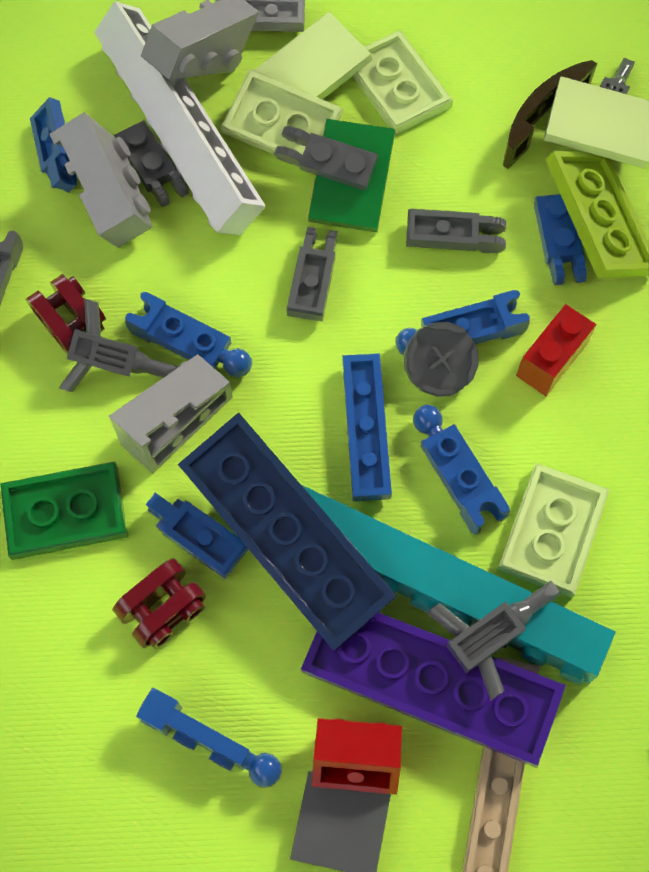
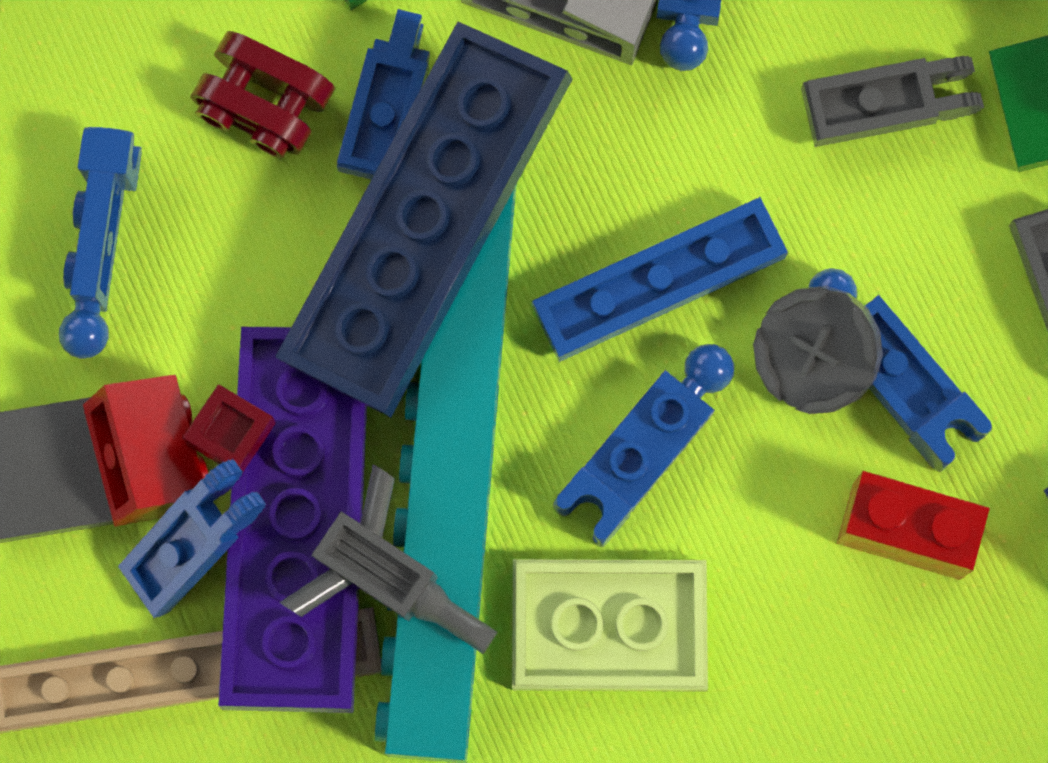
camera: 70 degrees right, 10 degrees up
(368, 695) = (229, 428): none -> dark red plate
(427, 749) = (188, 540): none -> blue hinge

